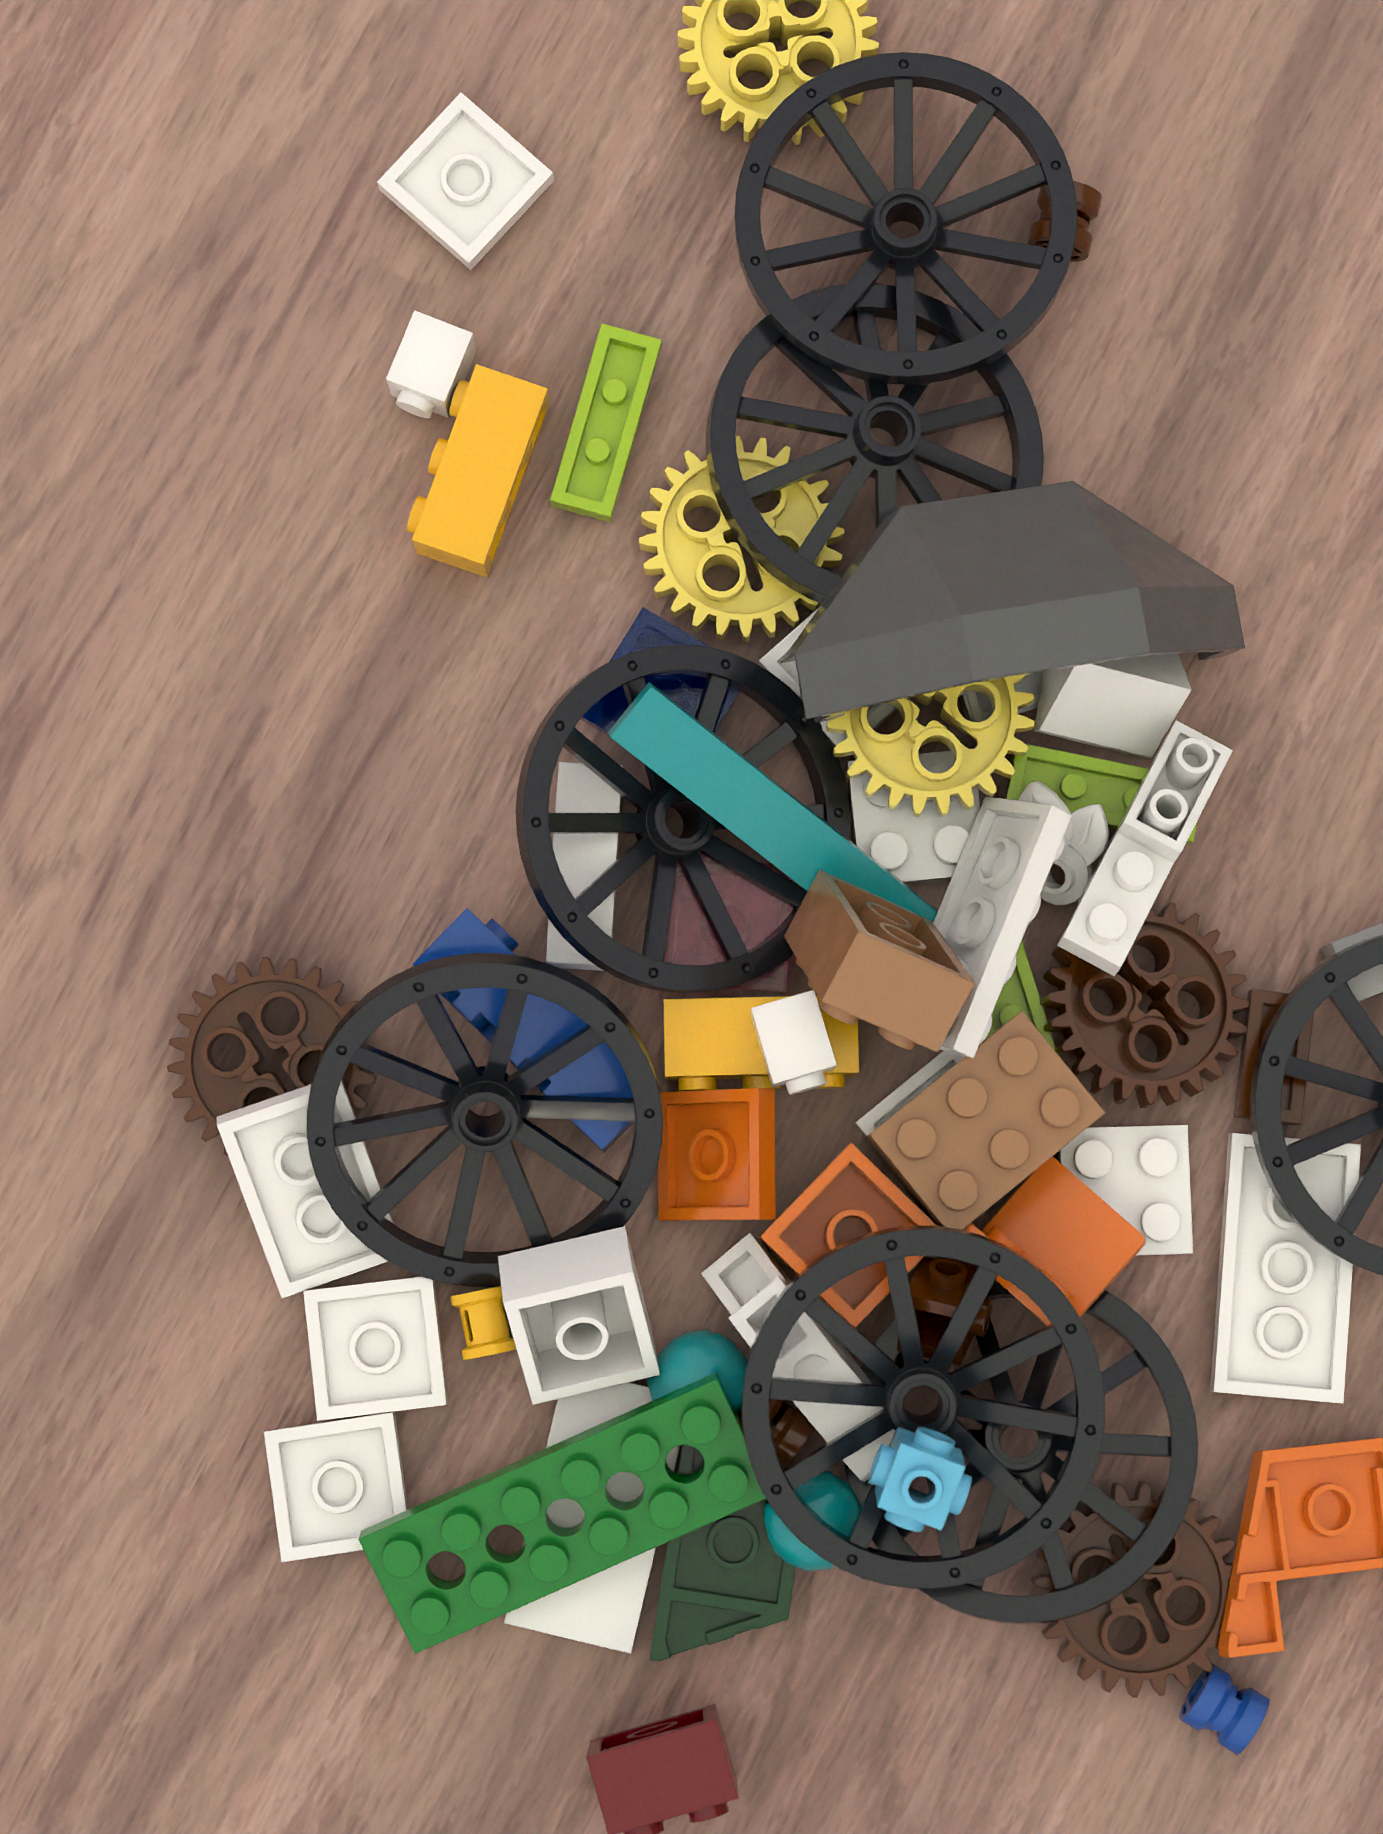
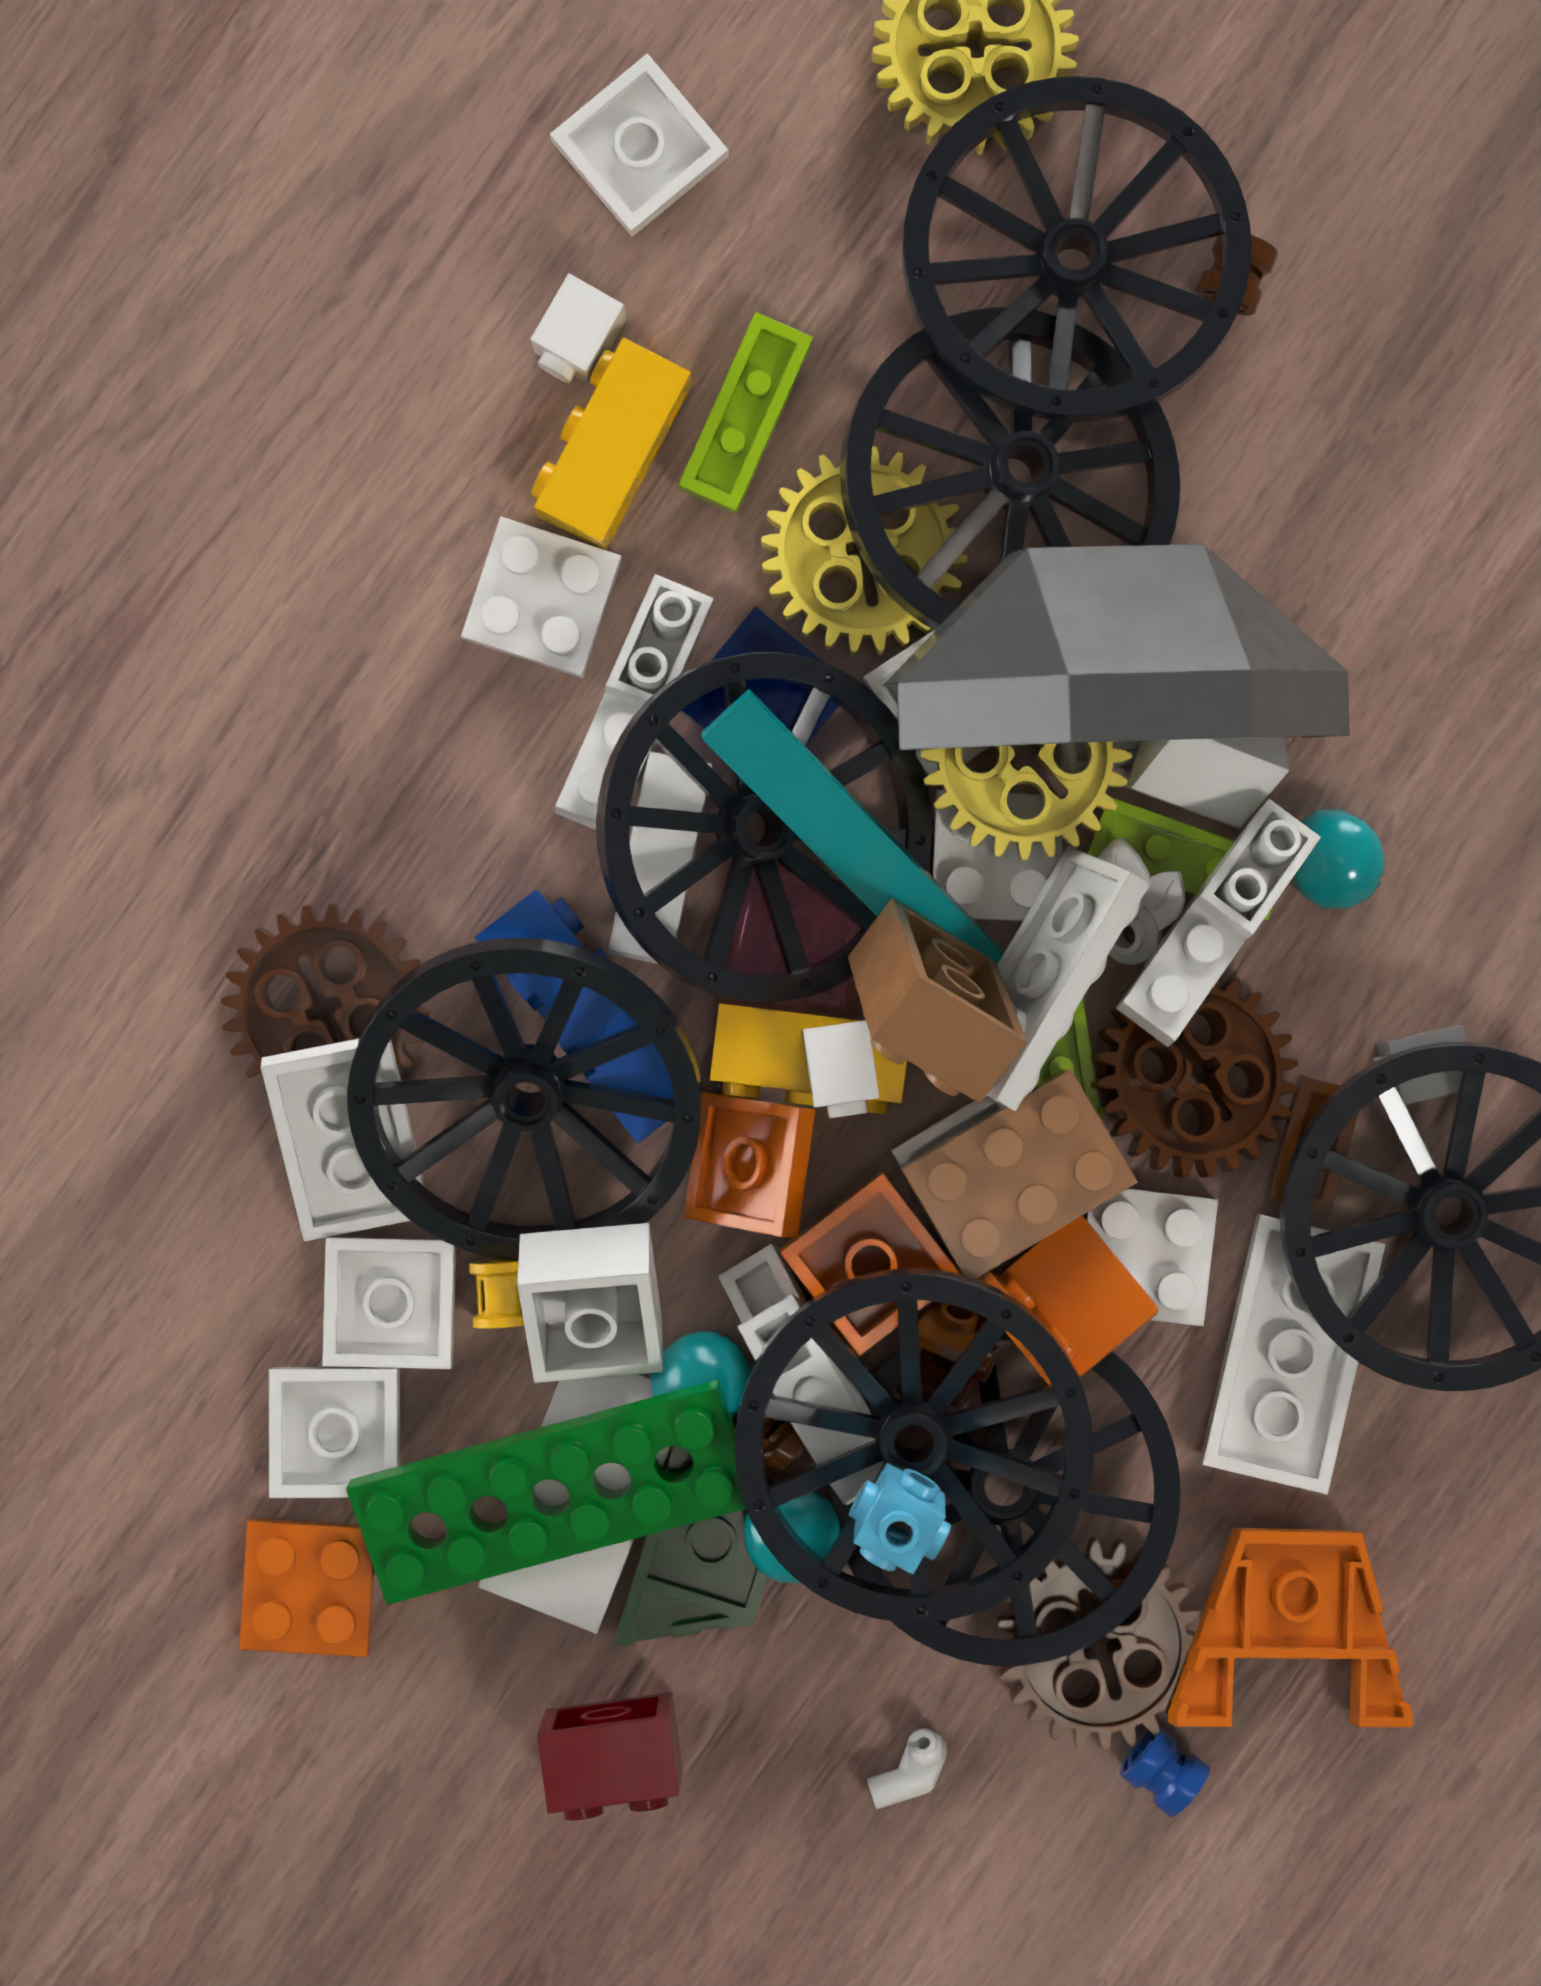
camera: 10 degrees right, 5 degrees up
(331, 1650) = (306, 1588): none -> orange plate
(430, 629) = (541, 597): none -> white plate
(549, 664) = (651, 656): none -> white slope
(974, 1746) = (916, 1772): none -> white arm
(1258, 776) = (1343, 864): none -> teal hair

